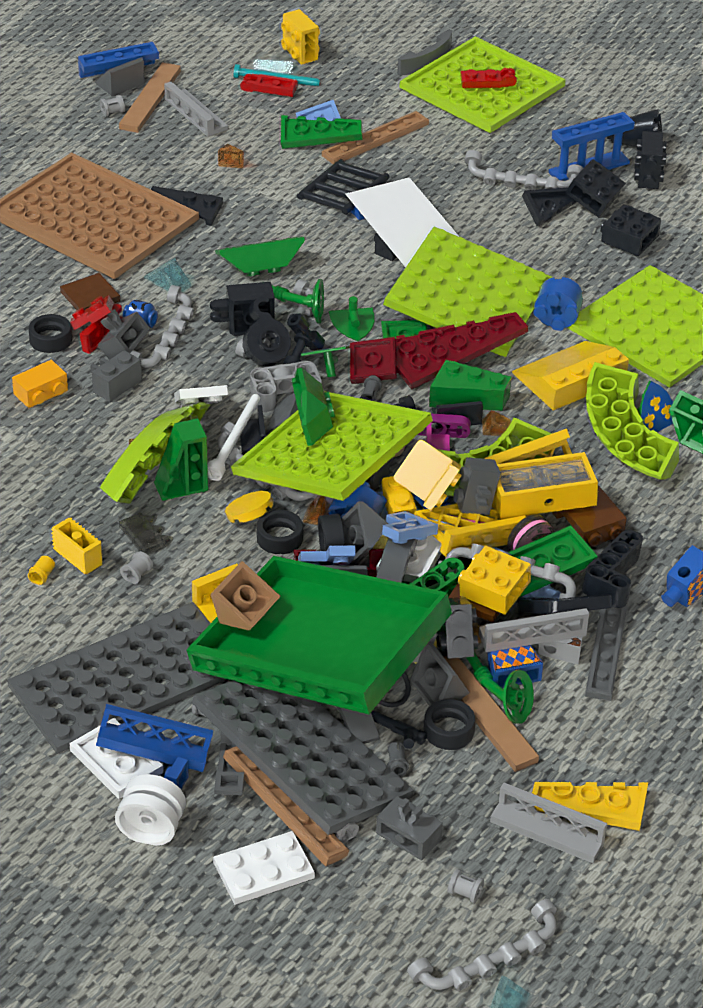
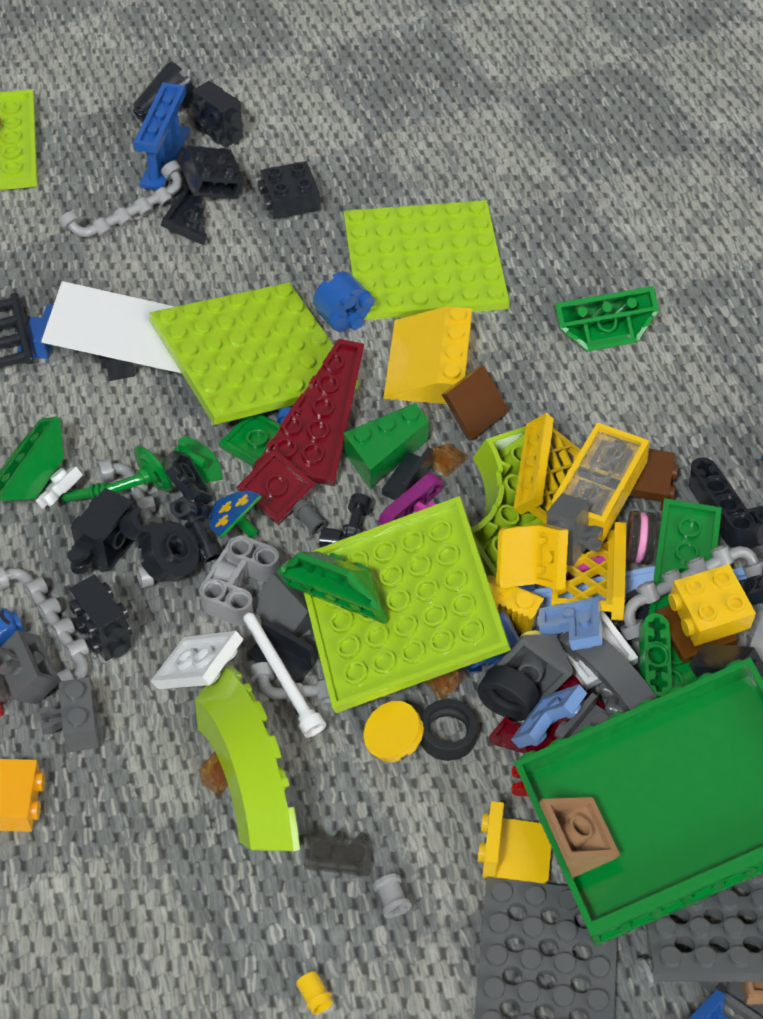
camera: 50 degrees left, 10 degrees up
(77, 545) = (319, 932): yellow brick -> none
(184, 462) = (298, 735): green wedge -> none
(187, 342) = (100, 618): none -> black brick
(268, 275) = (61, 483): none -> white plate
(330, 317) = (186, 477): none -> black plate
(552, 406) = (475, 402): none -> reddish brown tile
(620, 427) = (548, 372): lime brick -> none
(655, 407) = (547, 339): blue shield -> none

